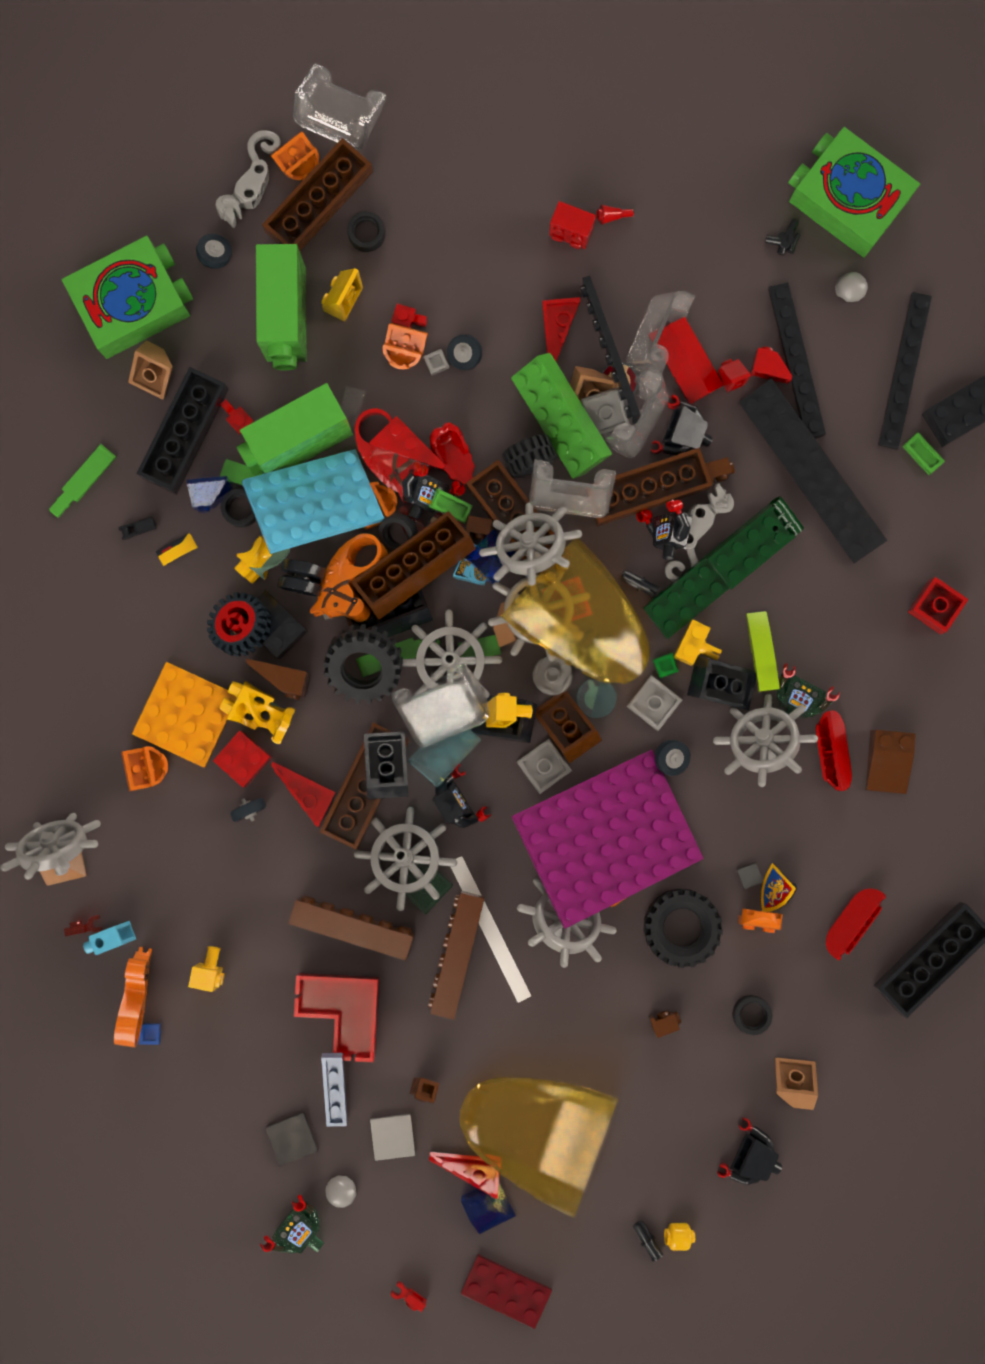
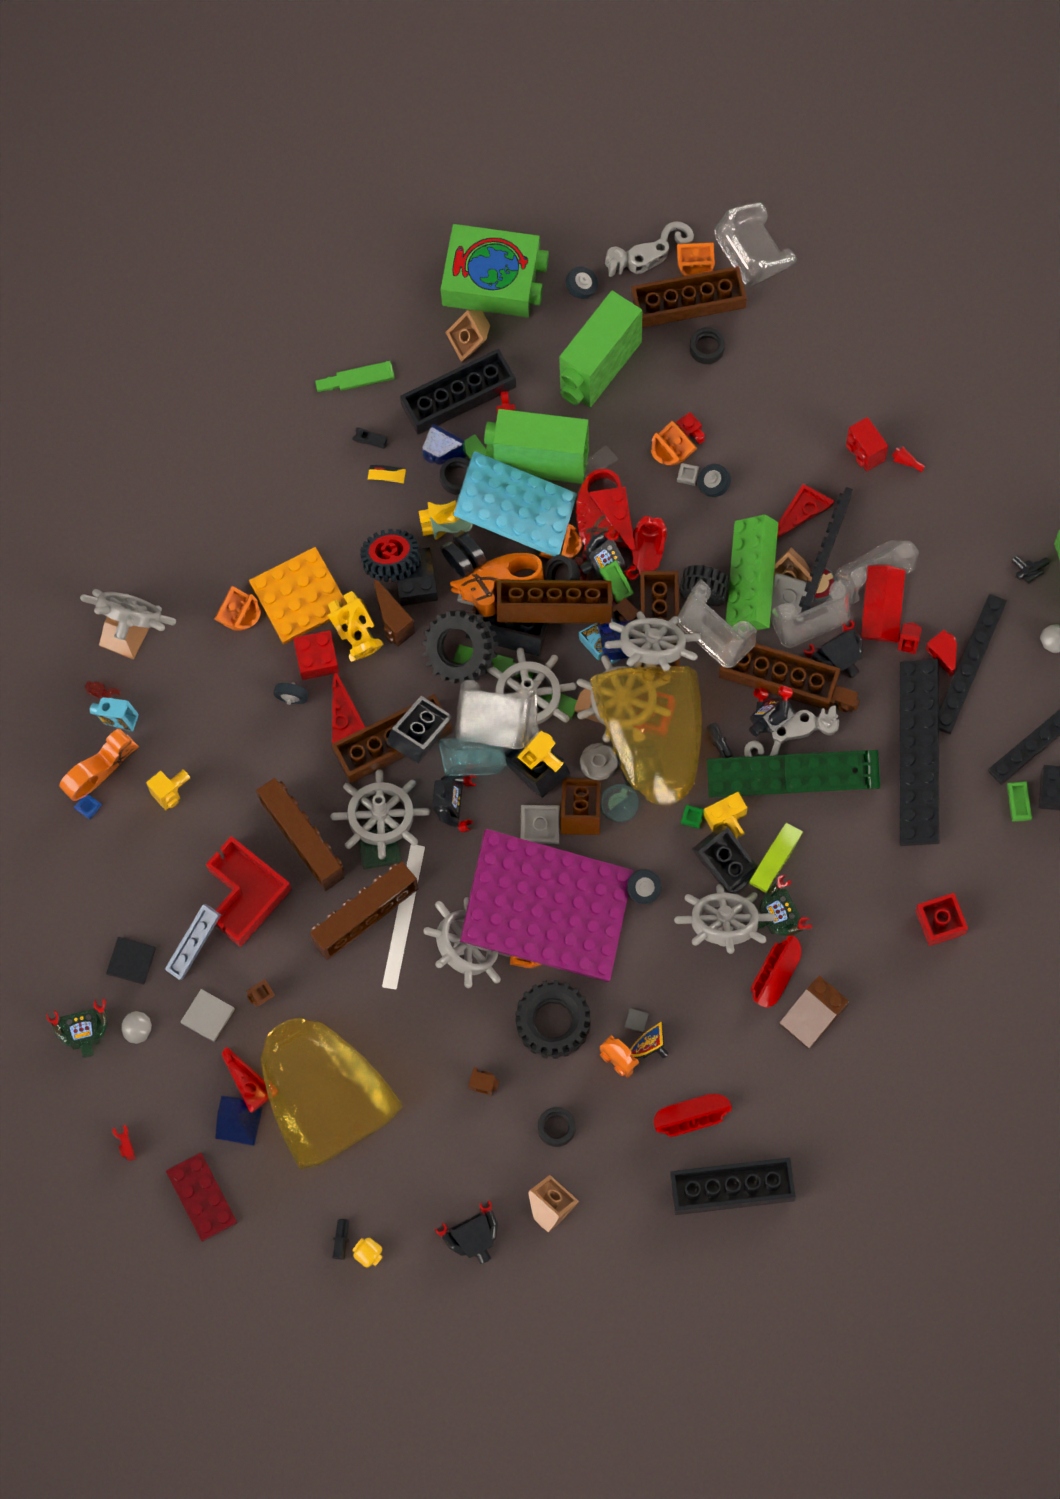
camera: 40 degrees right, 15 degrees down
(343, 294) = (654, 377): yellow slope -> none
(654, 703) = (662, 838): light grey tile -> none

